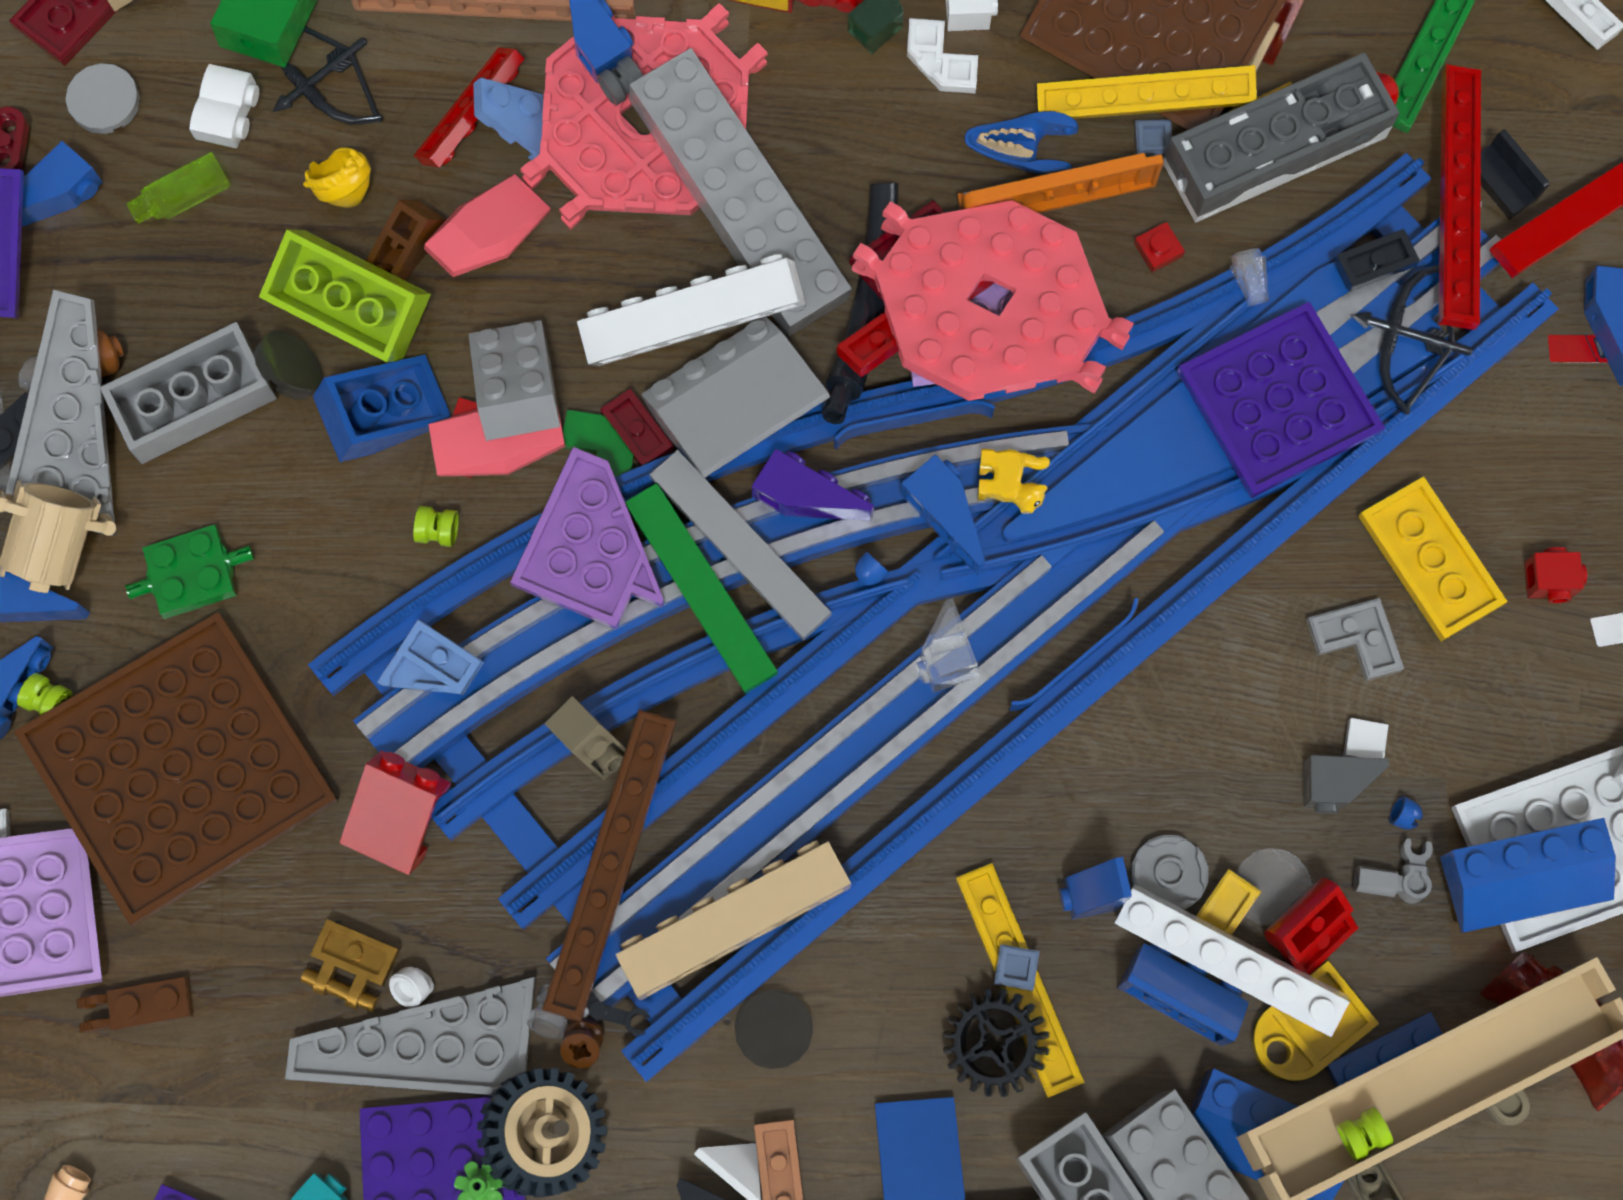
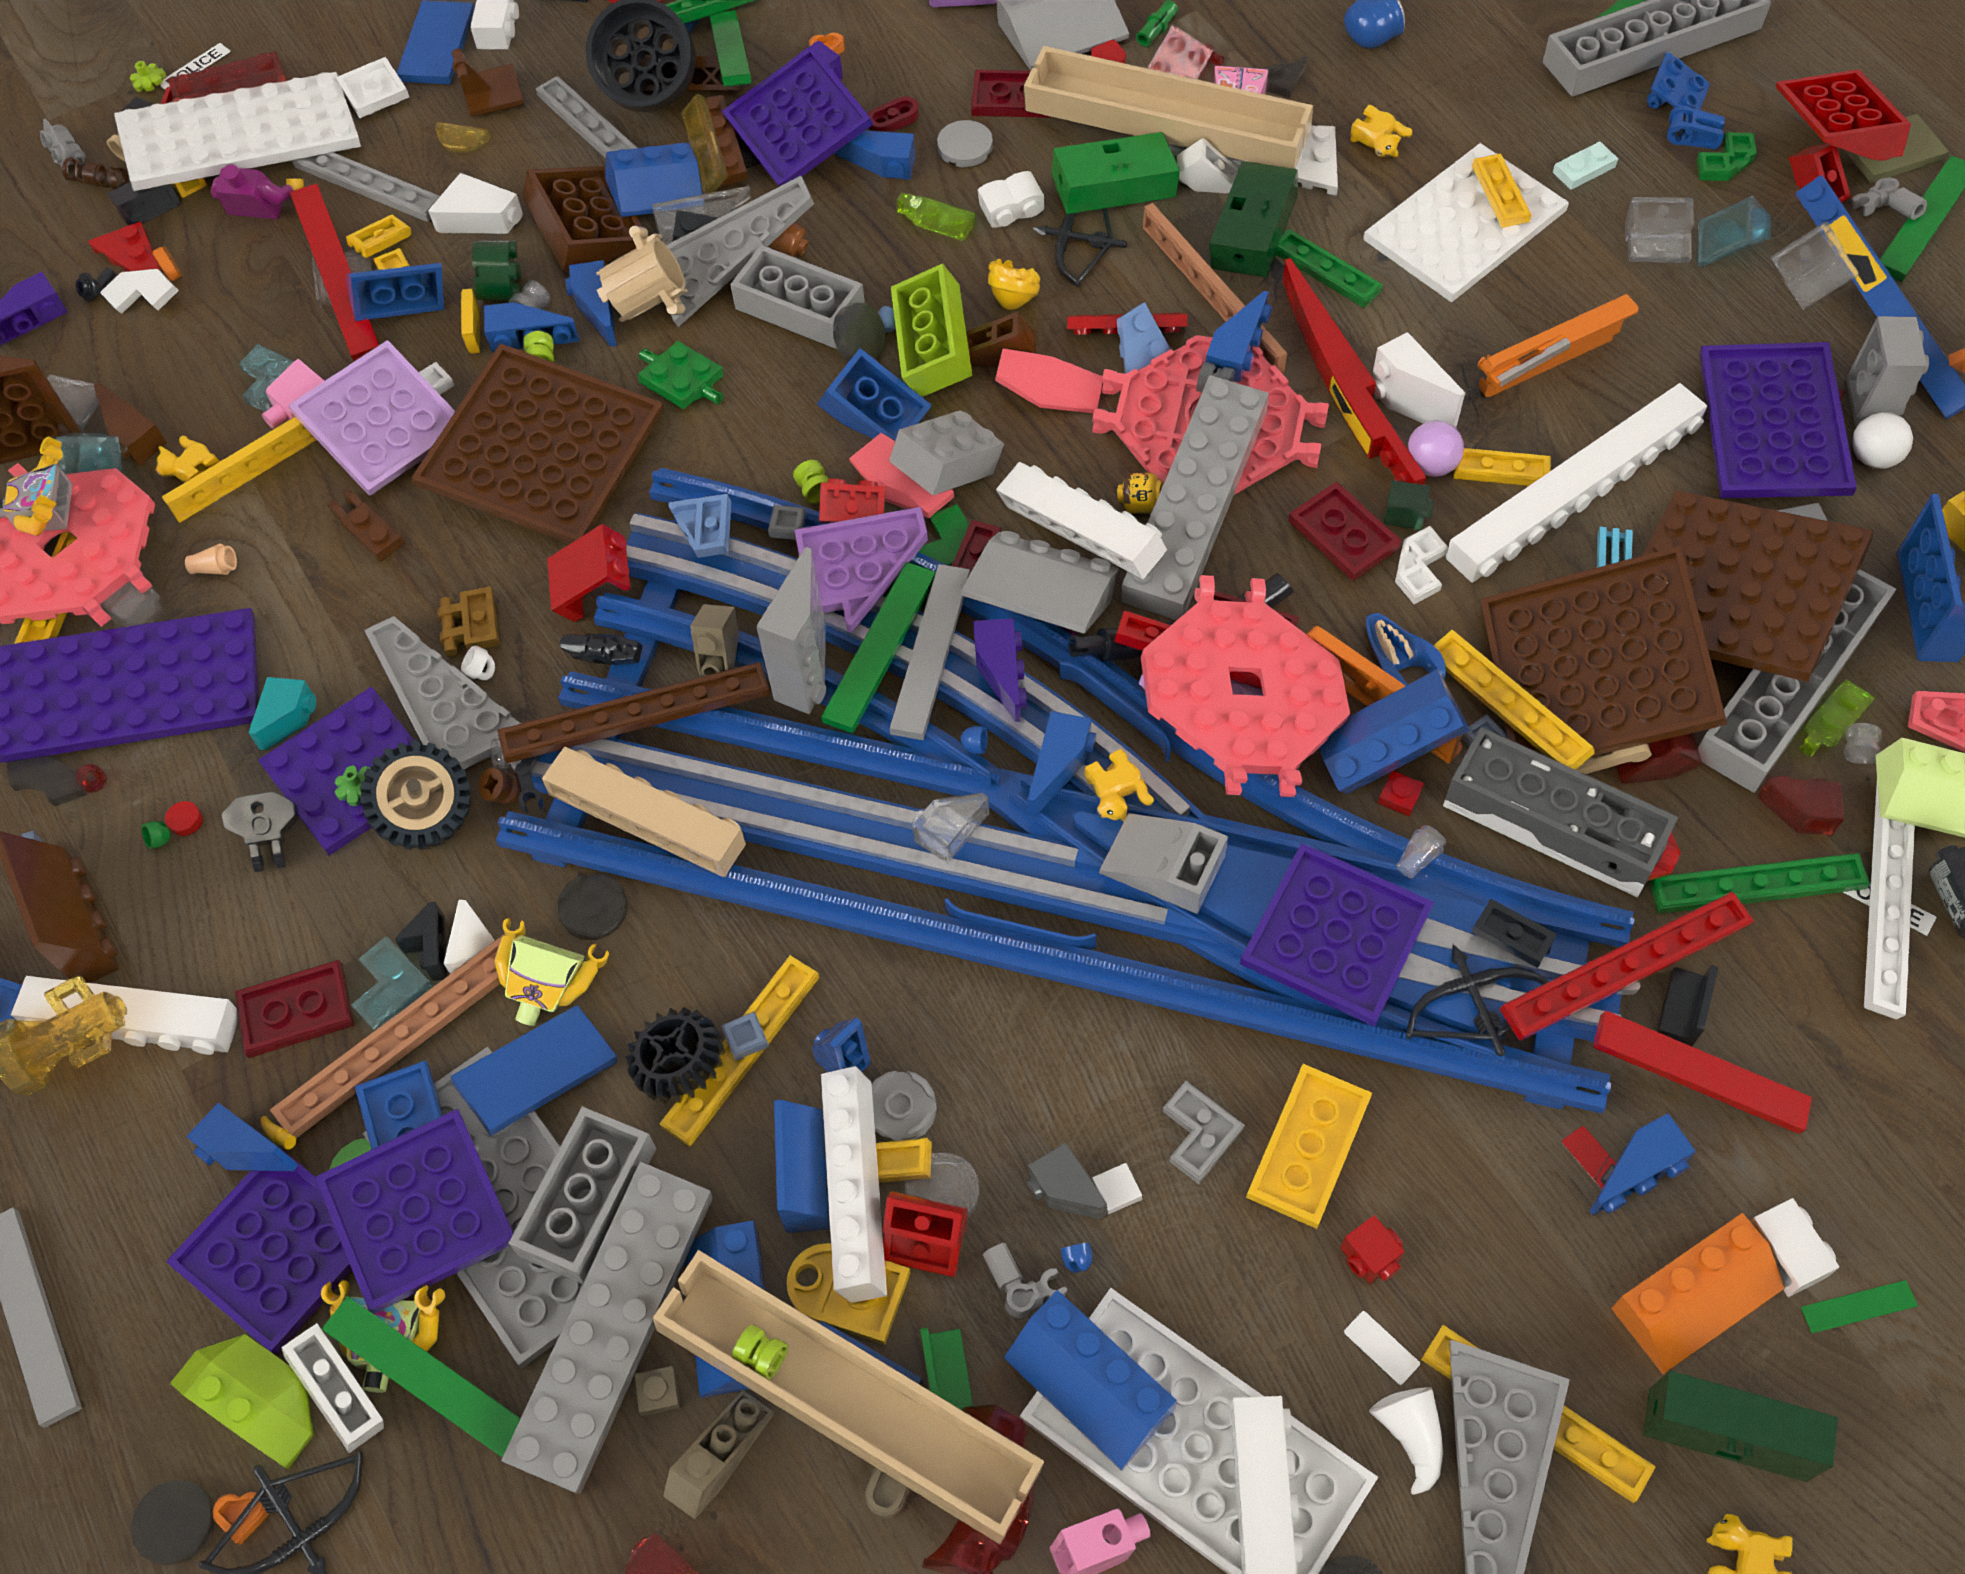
camera: 60 degrees right, 15 degrees down
(283, 322) = (887, 317): none -> medium blue hinge
(486, 583) = (785, 521): none -> dark grey tile
(494, 850) = (602, 648): none -> black hinge
(508, 507) = (849, 501): none -> red bracket
(678, 654) = (795, 638): none -> light grey slope
(686, 236) = (1139, 492): none -> yellow head
(828, 1118) = (541, 973): none -> torso
(861, 93) = (1344, 531): none -> dark red plate
(1116, 488) = (1166, 859): none -> light grey slope
(1122, 208) = (1392, 733): none -> blue slope
(1436, 987) = (947, 1367): none -> green panel

